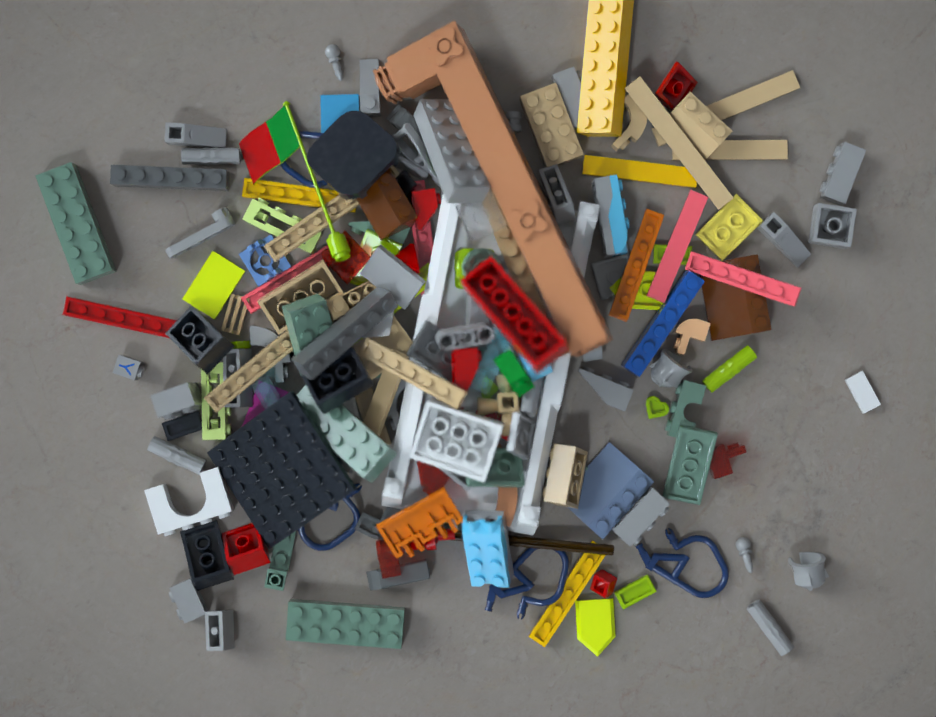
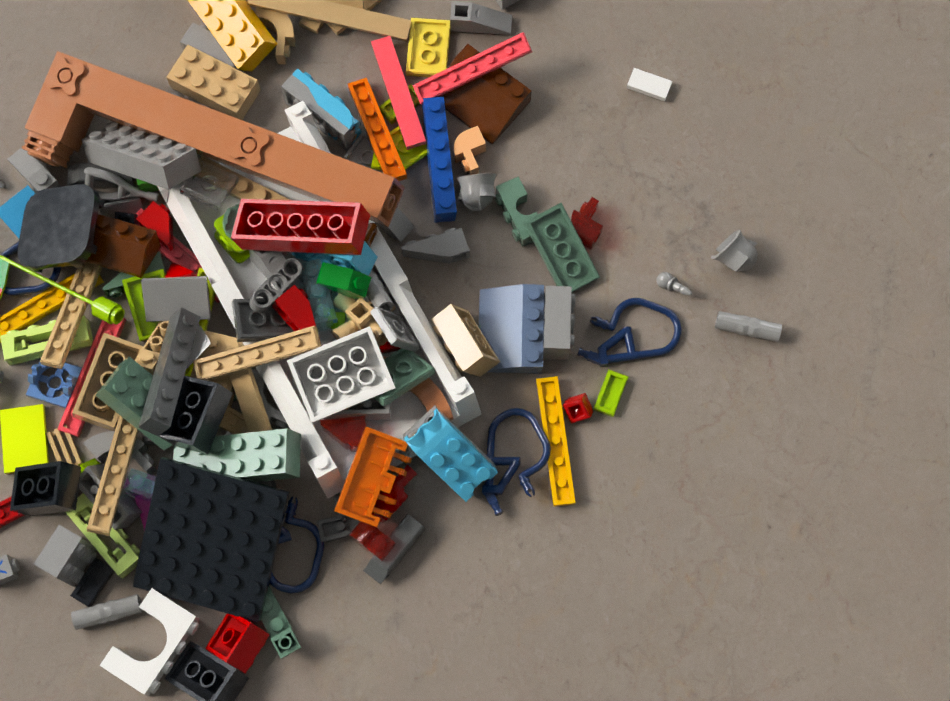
camera: 40 degrees left, 15 degrees down
(345, 623) = (382, 631): sand green brick -> none
(350, 267) = (133, 322): clear red hinge -> none
(552, 544) = (500, 413): dark brown axle -> none
(557, 194) = (264, 118): light grey brick -> none
(595, 623) = (601, 448): neon yellow tile -> none
(638, 171) = (320, 60): yellow tile -> none
(655, 407) = (494, 231): lime tile -> none
(729, 369) = (526, 150): lime axle -> none

